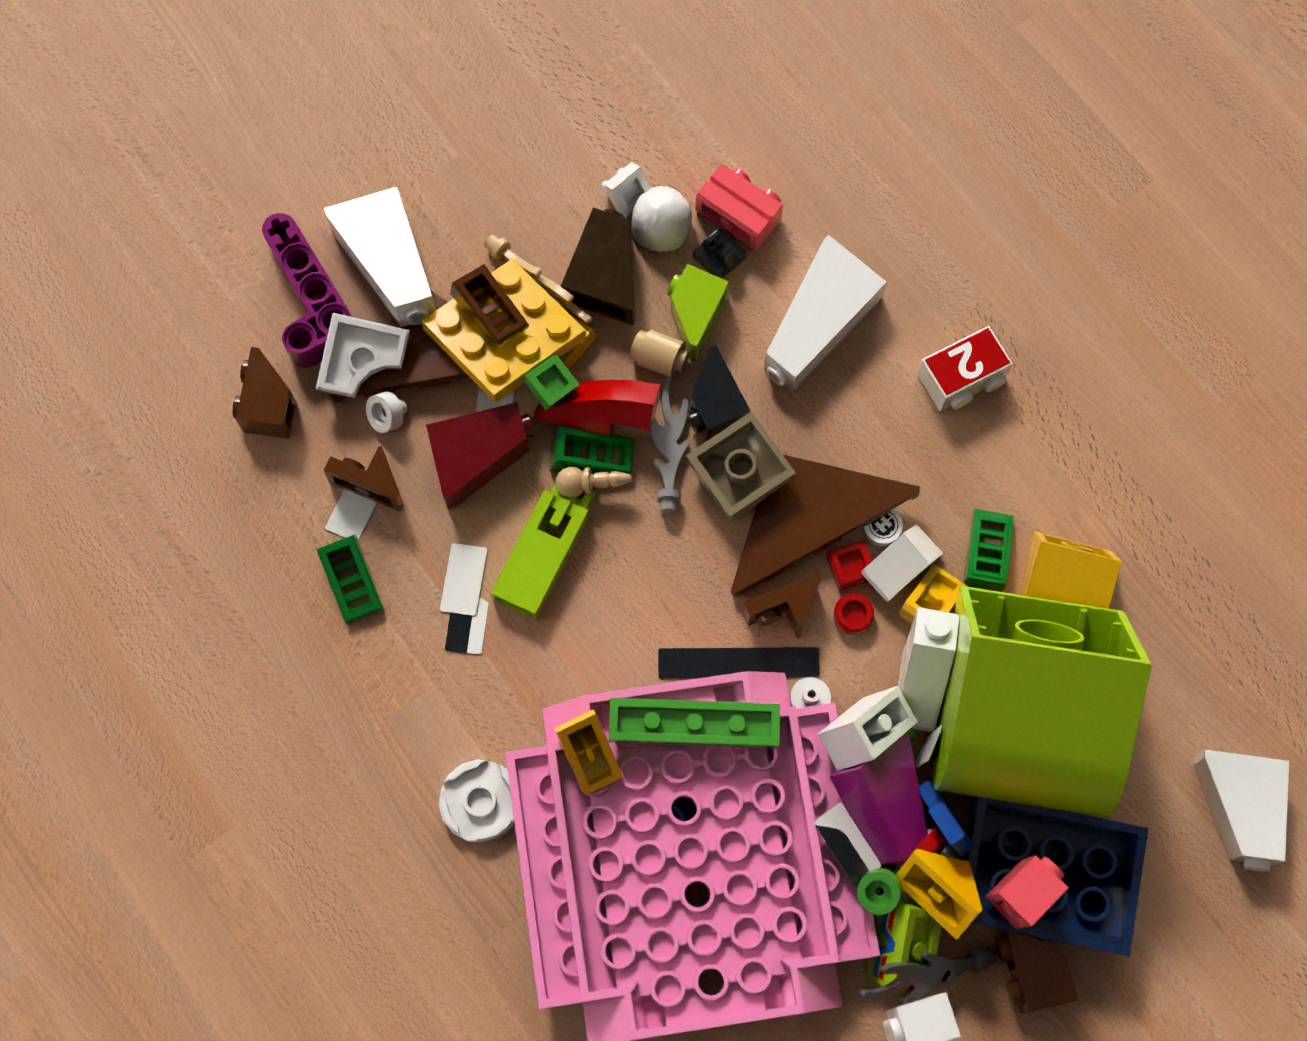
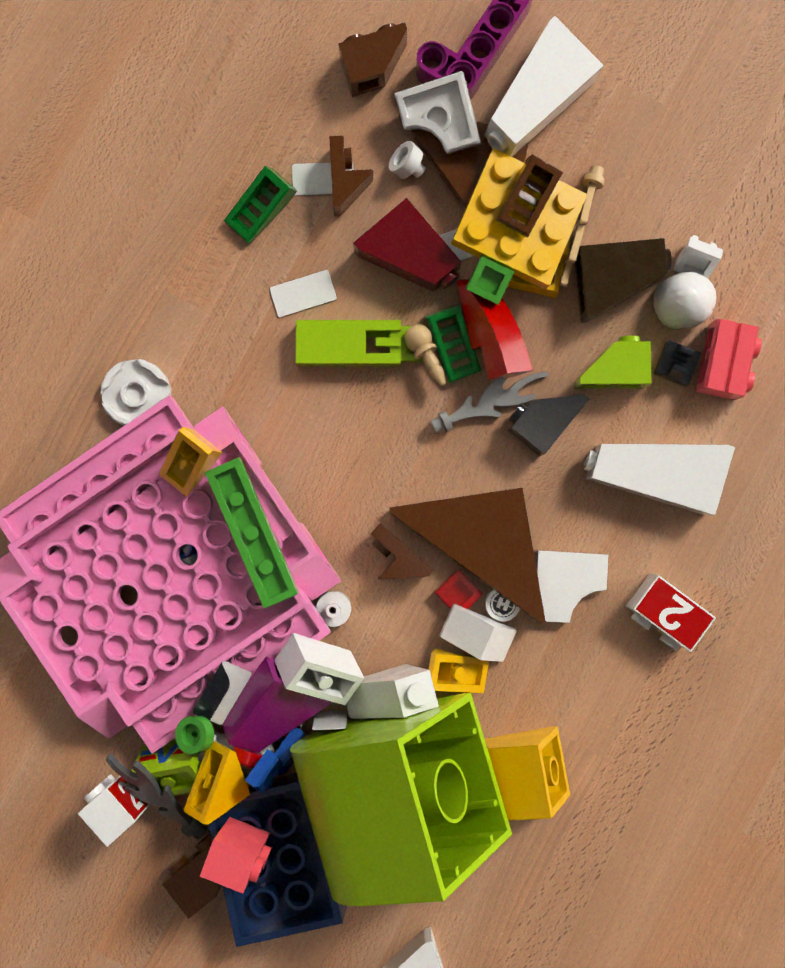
camera: 70 degrees right, 15 degrees up
(467, 632) = (262, 317): sticker -> none
(659, 353) = (563, 356): tan brick -> none
(722, 661) = (338, 539): black sticker -> none
(740, 467) = (493, 468): dark tan slope -> none
(853, 614) = (418, 612): red tile -> none
(887, 449) = (567, 579): none -> white tile
(985, 579) = (502, 717): green slope -> none

